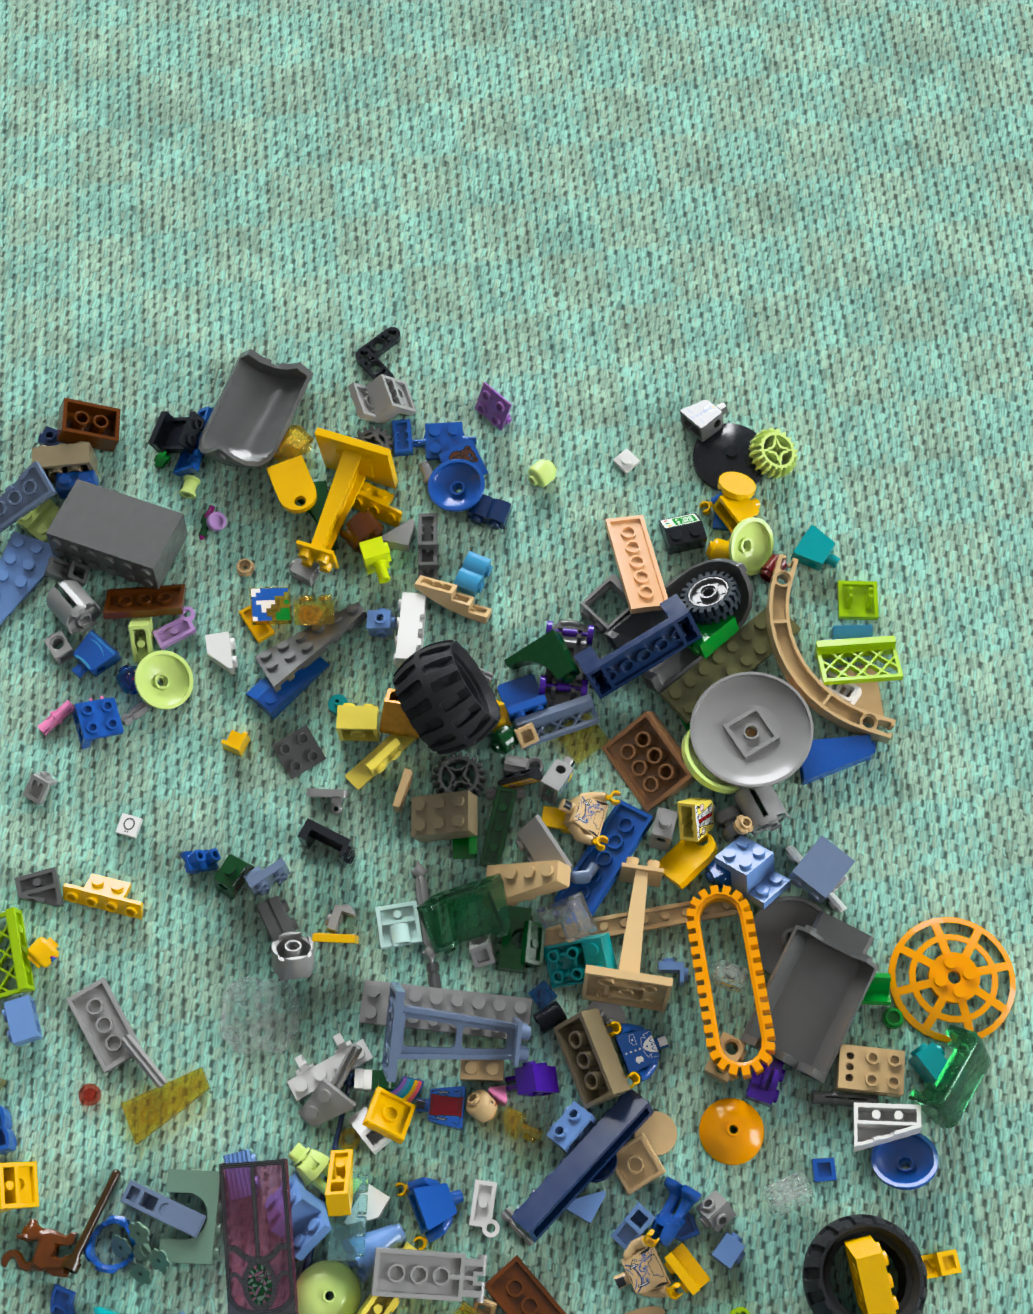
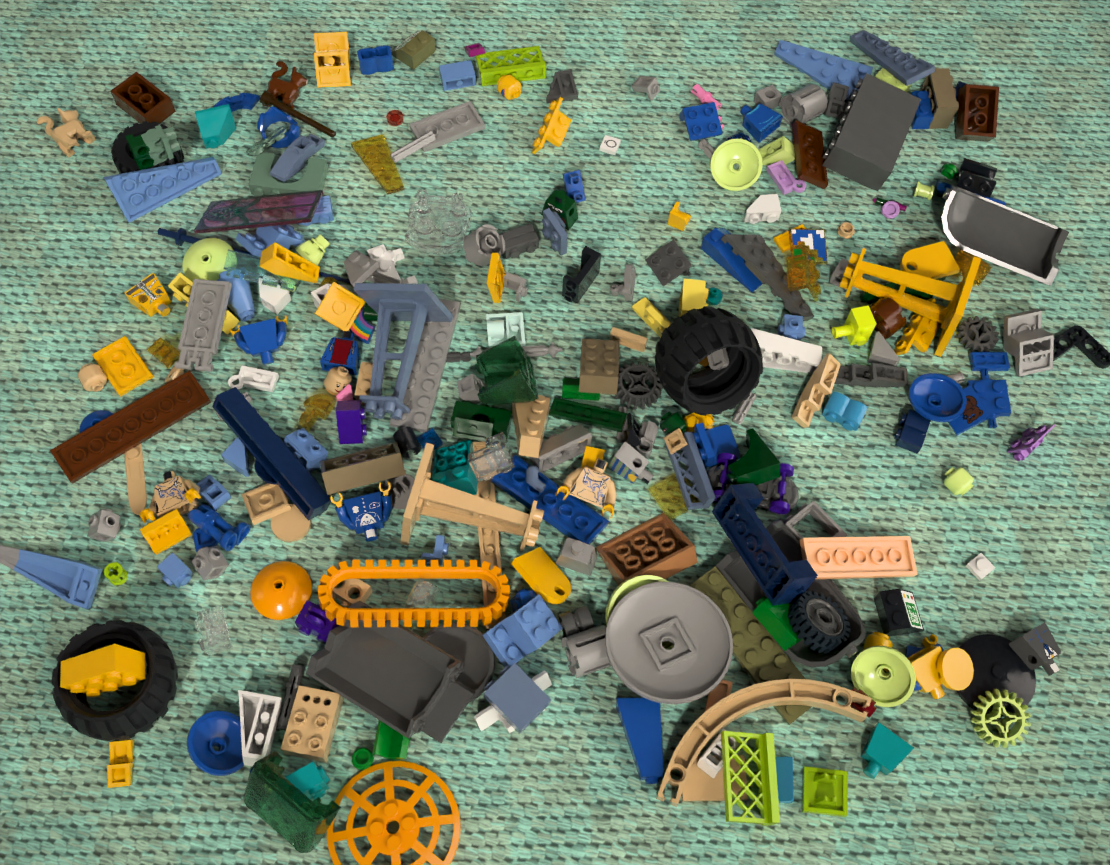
camera: 90 degrees right, 5 degrees down
(695, 818) = (583, 585): light yellow torso -> none
(740, 828) = (564, 625): tan plate -> none
(823, 1169) = (228, 667): blue plate -> none

